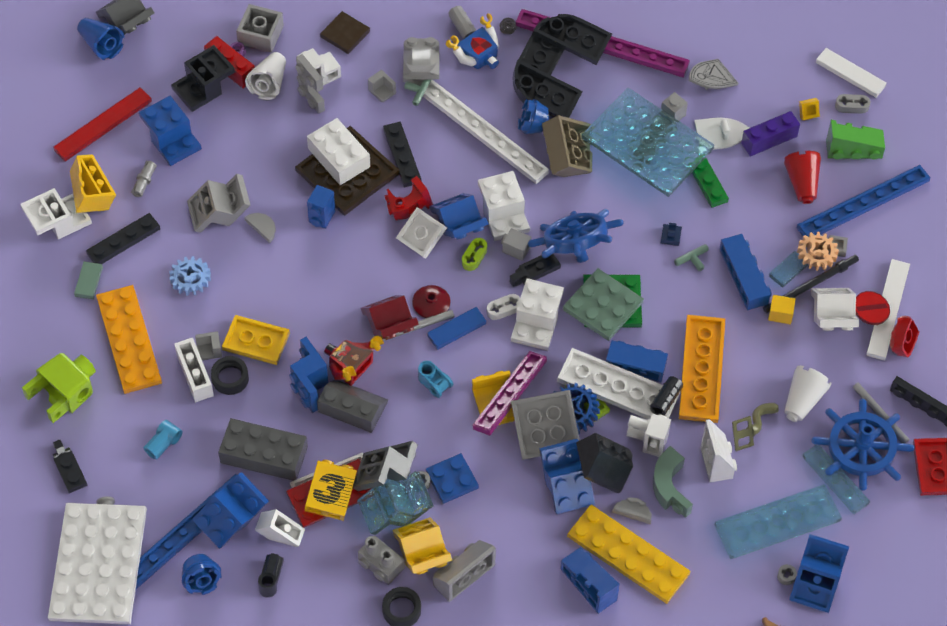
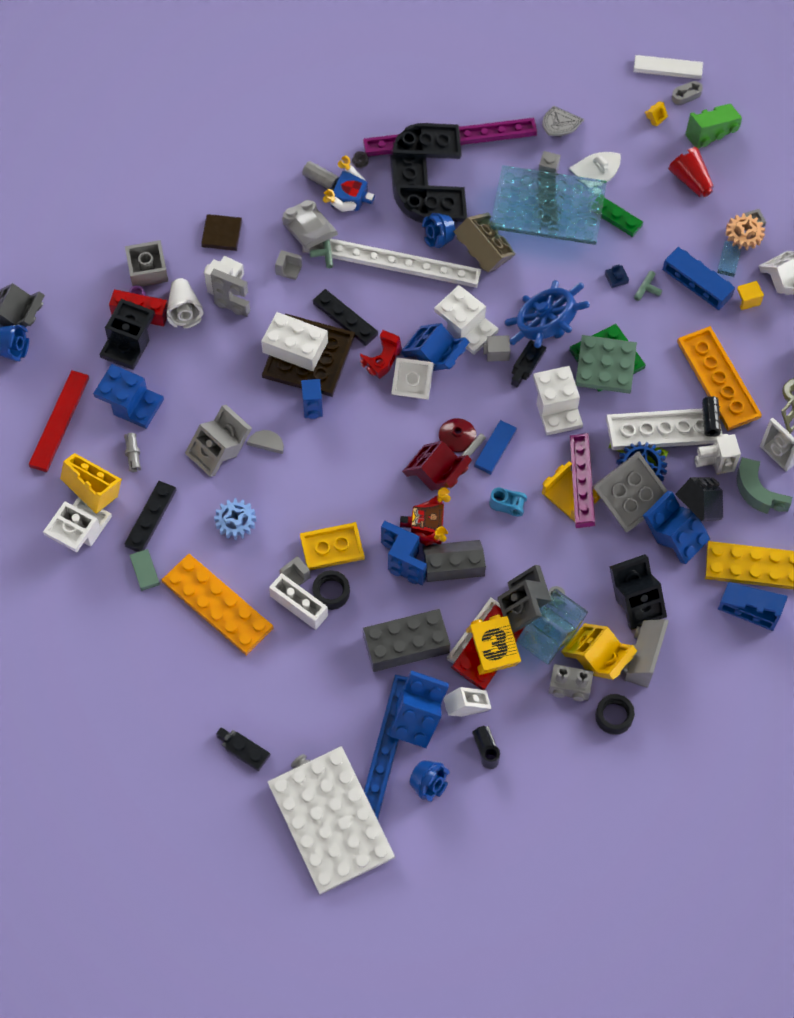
camera: 30 degrees left, 5 degrees up
(65, 382) = (191, 674): lime piece -> none
(166, 435) = (312, 673): dark azure piece -> none
(452, 478) = (580, 579): blue plate -> none
(471, 252) = (470, 374): lime beam -> none
(493, 512) = (638, 591): none -> black bracket
(504, 307) = (519, 406): white beam -> none
(634, 509) = (743, 526): light grey tile -> none
(638, 360) = (665, 397): blue brick -> none
(770, 133) = (641, 149): dark purple brick -> none
(839, 267) = (768, 237): black bar -> none
(864, 202) = (750, 173): blue tile -> none

